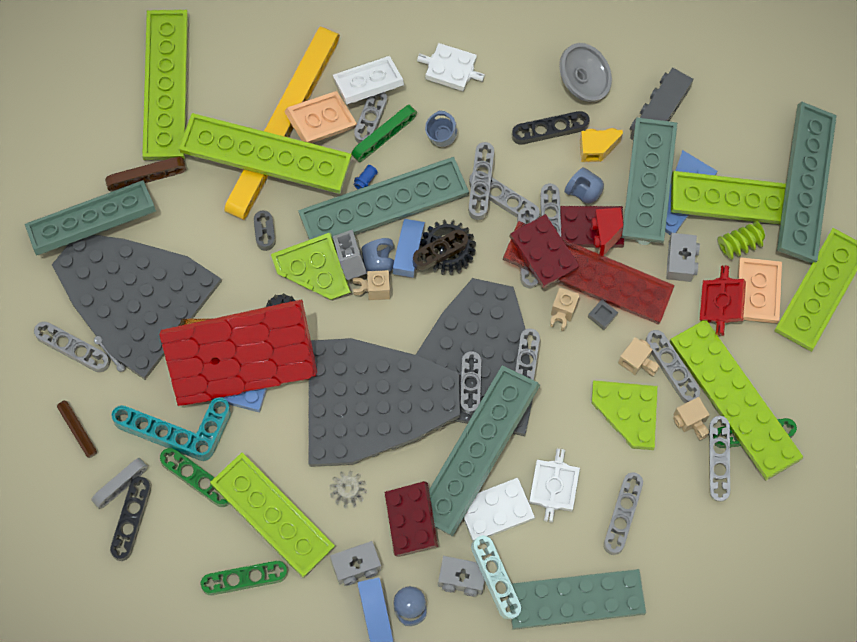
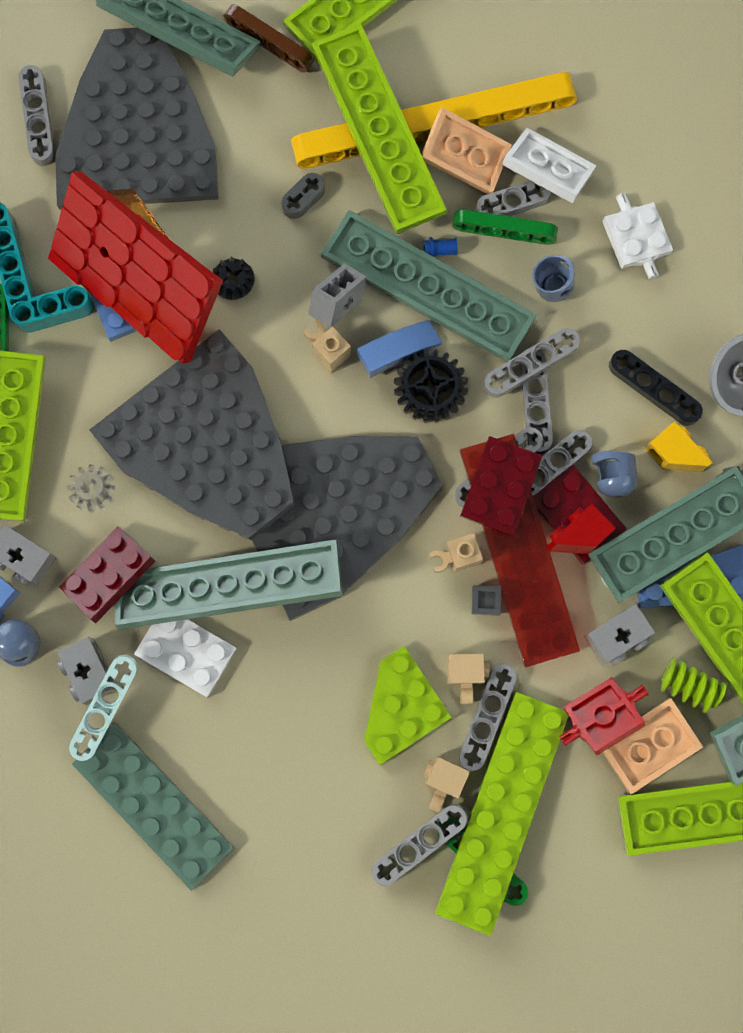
camera: 55 degrees right, 10 degrees up
(120, 367) = (51, 176): light grey hinge -> none
(313, 266) = (297, 269): lime plate -> none
(378, 260) = (358, 327): sand blue helmet -> none
(444, 241) = (436, 378): dark brown beam -> none
(477, 389) = (309, 503): light grey beam -> none
(534, 346) = (390, 555): light grey beam -> none
(554, 485) = (256, 691): white plate -> none
(626, 514) = (283, 788): light grey beam -> none

